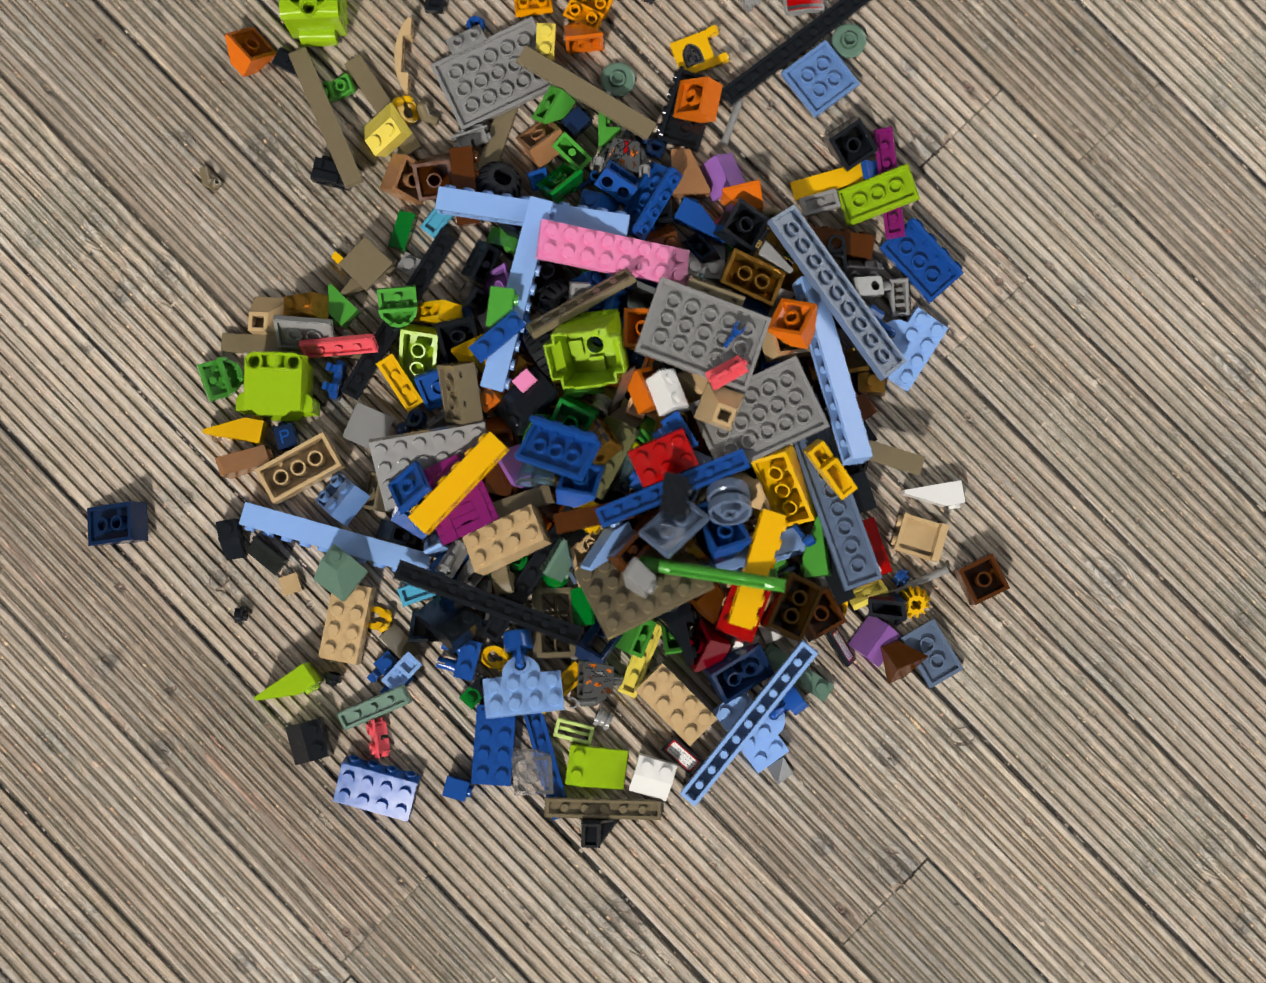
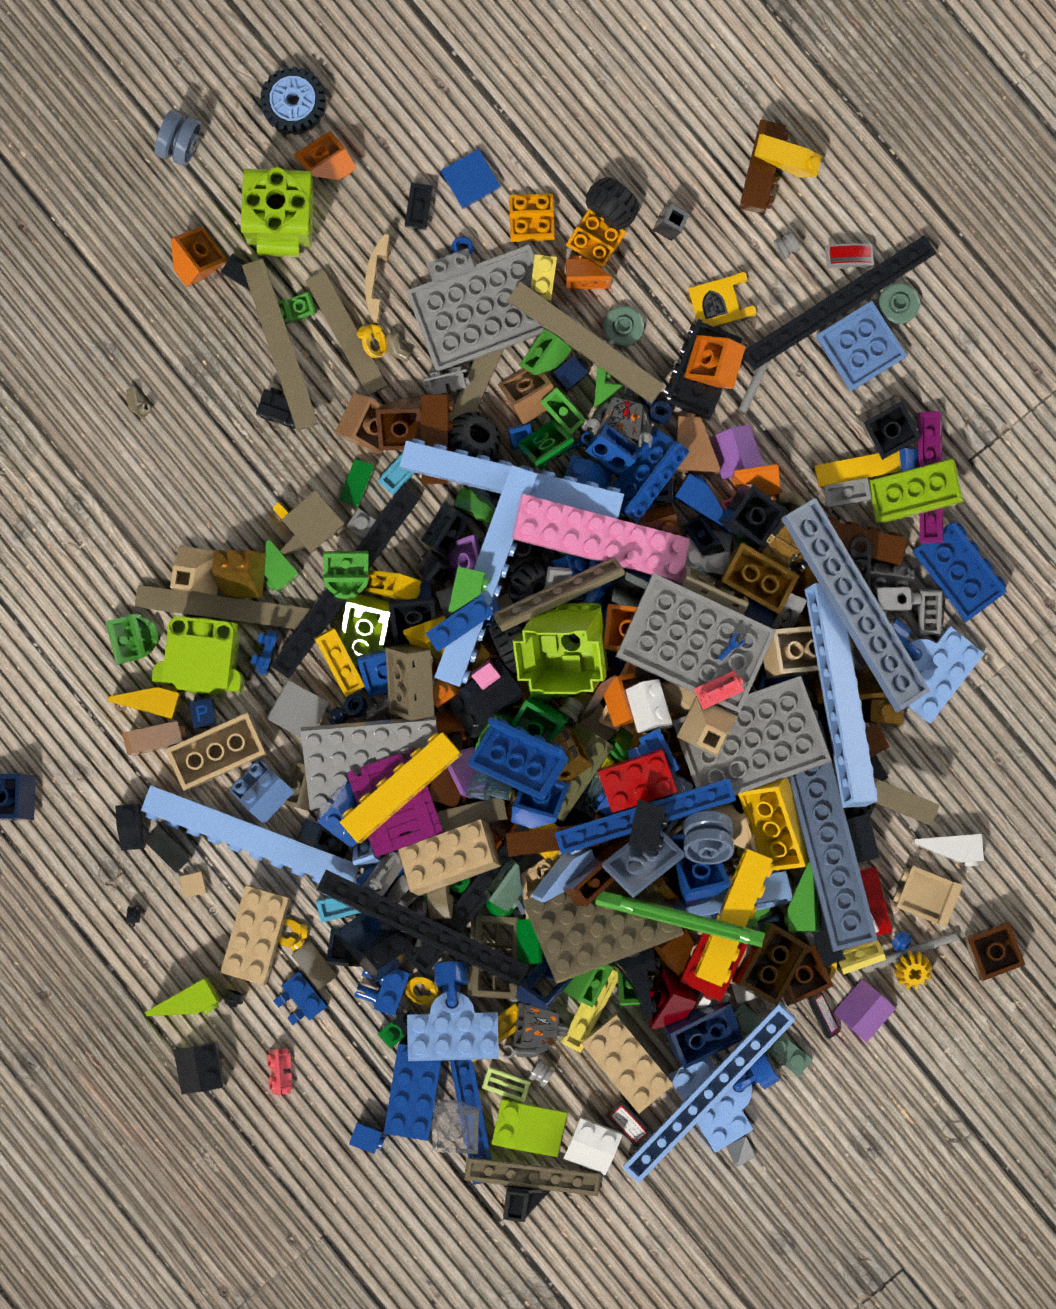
camera: 10 degrees right, 0 degrees up
(292, 329) = (235, 596): light grey tile -> none
(339, 346) = (273, 614): coral tile -> none
(339, 573) = (253, 878): sand green slope -> none
(374, 707) = (279, 1035): sand green tile -> none
(376, 787) = (273, 1129): bracket -> none
(386, 131) = (347, 365): light yellow slope -> none
(401, 671) = (314, 998): light blue slope -> none
(409, 487) = (343, 786): blue tile -> none
(639, 579) = (598, 917): light grey slope -> none
(770, 254) = (783, 554): light grey slope -> none
(794, 322) = (802, 637): orange slope -> none
(808, 540) = (794, 888): blue hand -> none
(830, 468) = (828, 809): yellow slope -> none
(888, 607) = (882, 974): black slope -> none
(900, 660) = (891, 1036): reddish brown slope -> none
(941, 661) = (929, 1031): sand blue plate -> none

